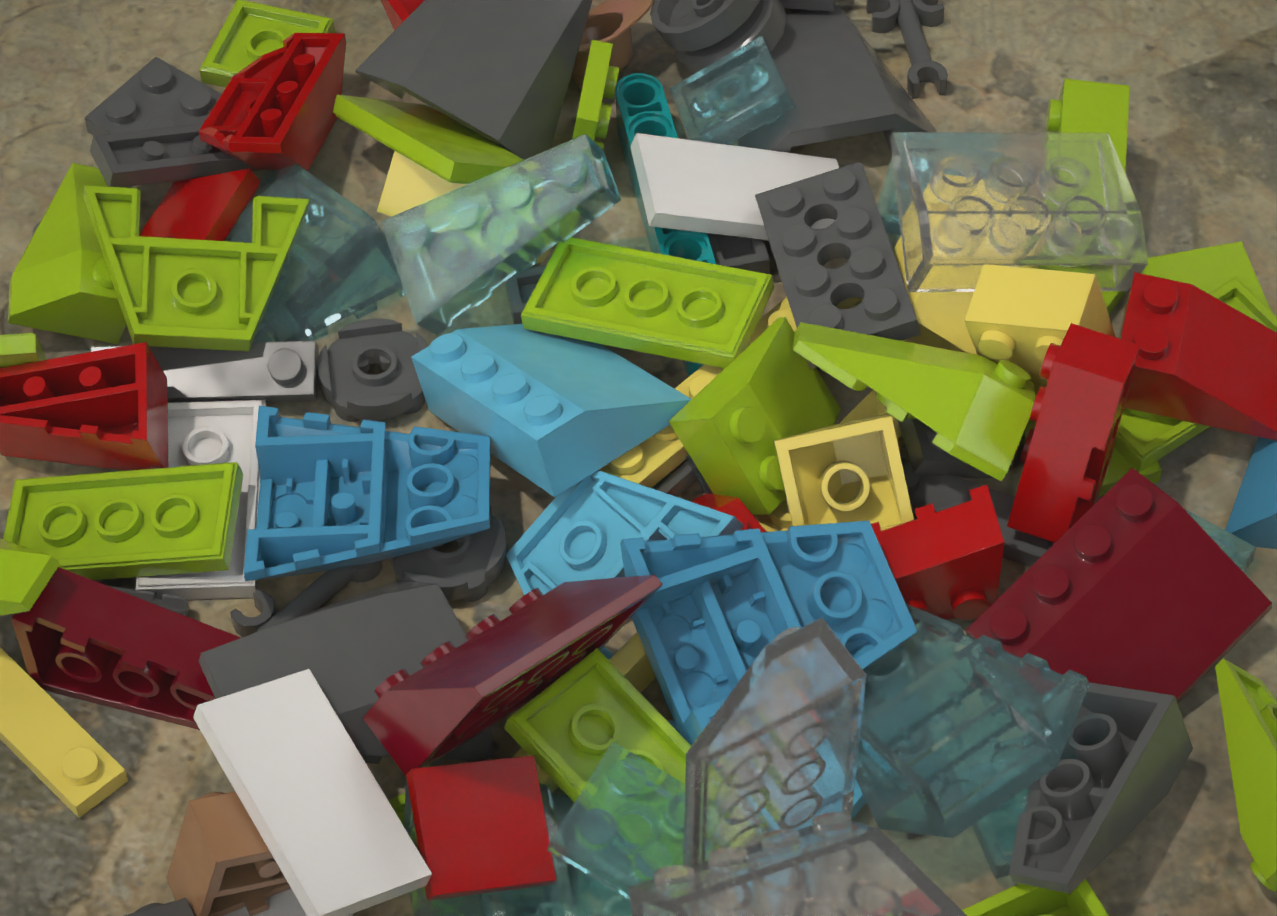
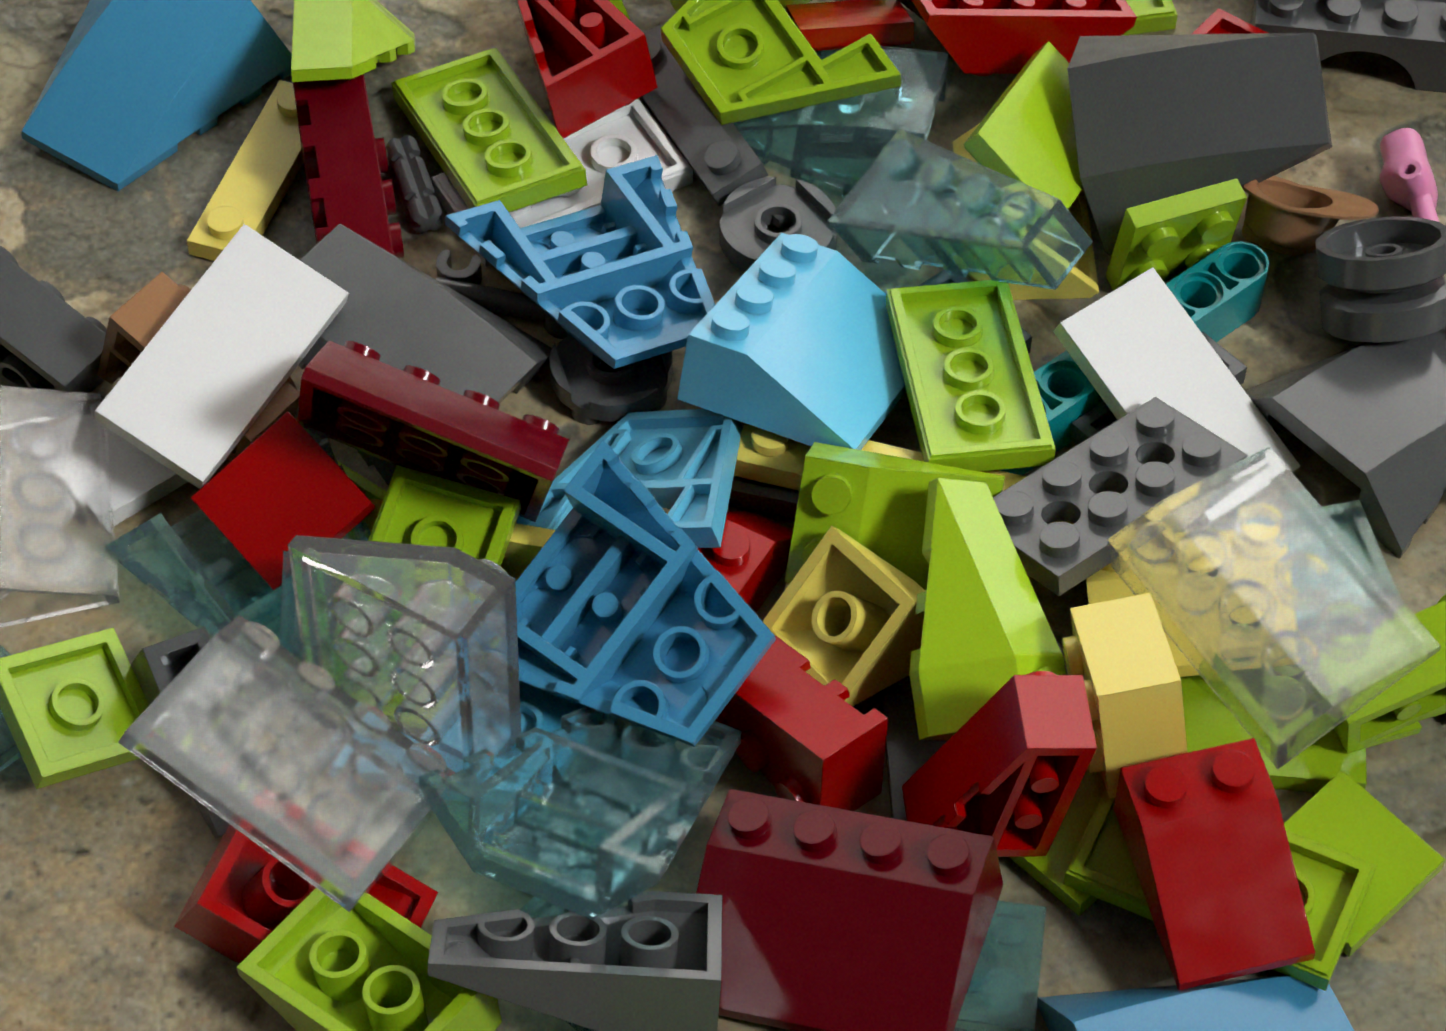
camera: 60 degrees right, 0 degrees up
(733, 95) = (1285, 333): clear light blue plate -> none

